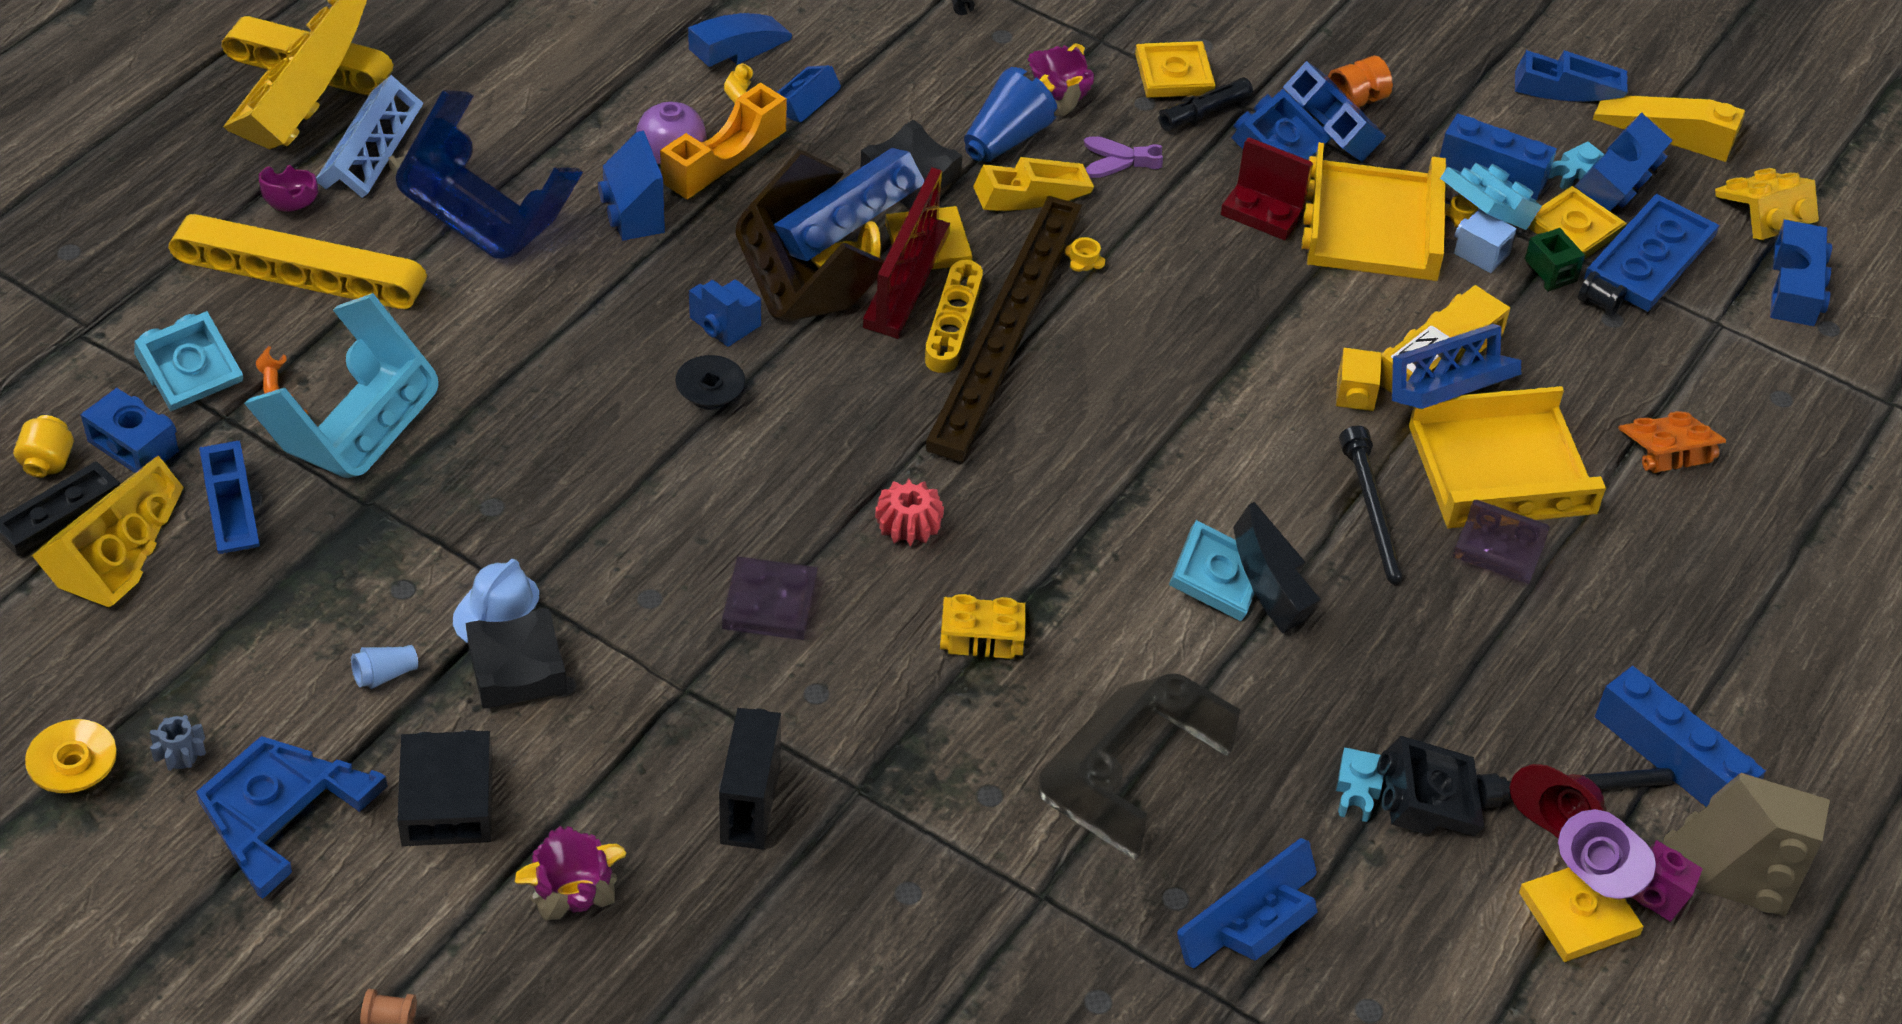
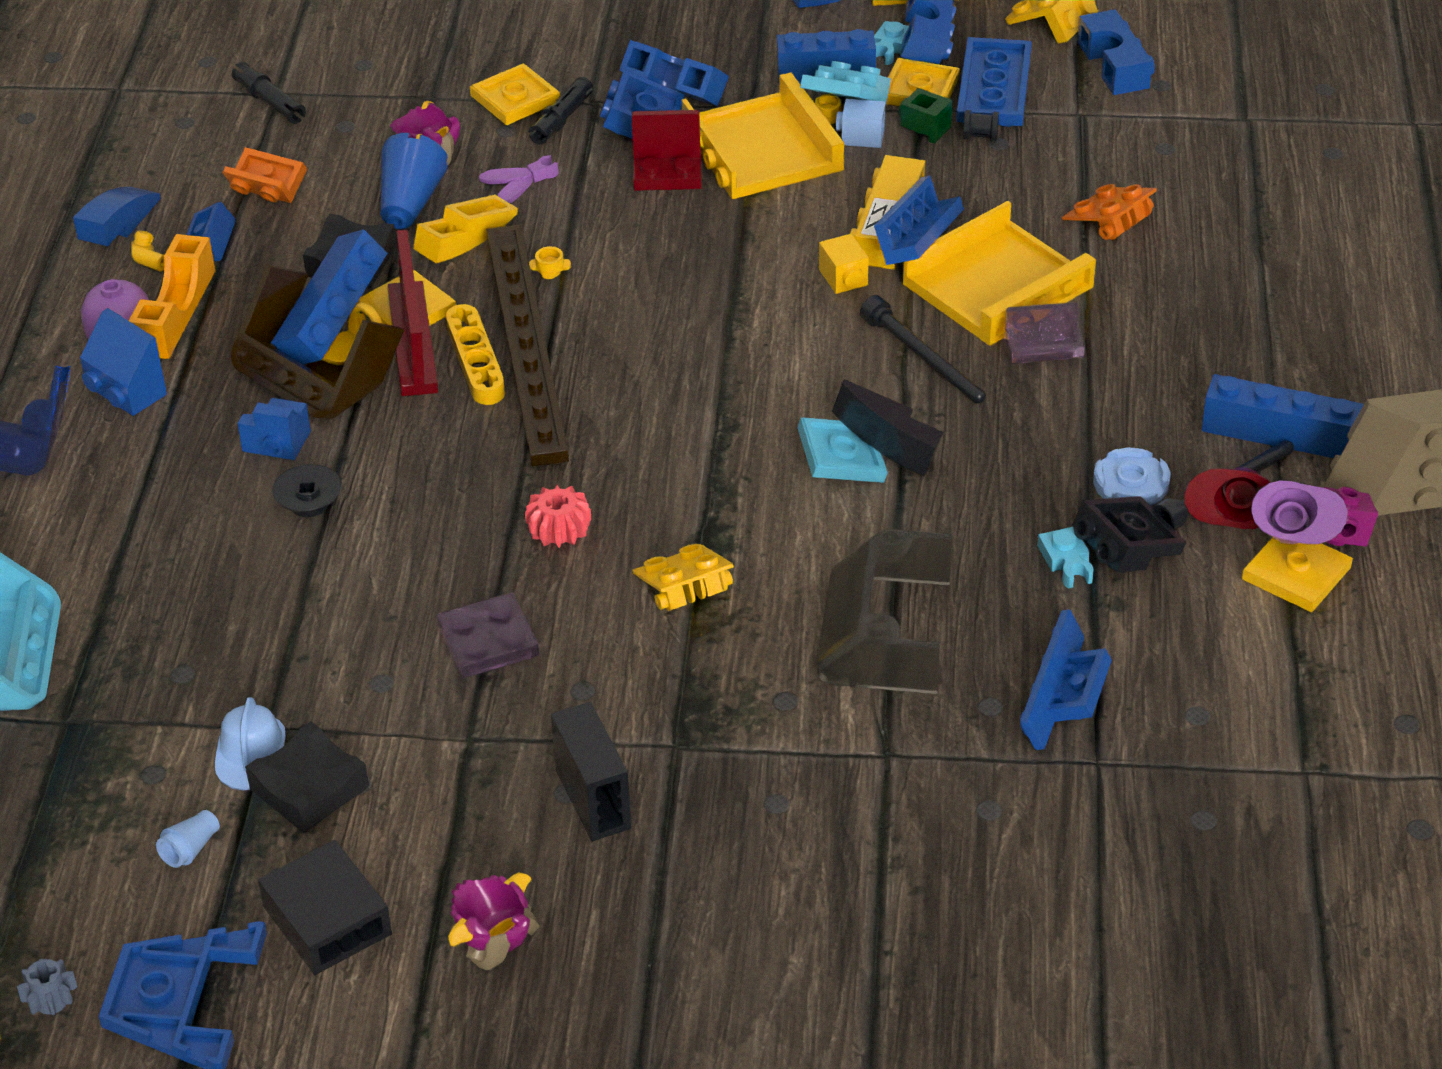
camera: 25 degrees left, 5 degrees down
(892, 57) = (266, 175): none -> orange bracket
(1364, 80) = (681, 39): orange wheel -> none
(1485, 730) = (1132, 474): none -> light blue tile

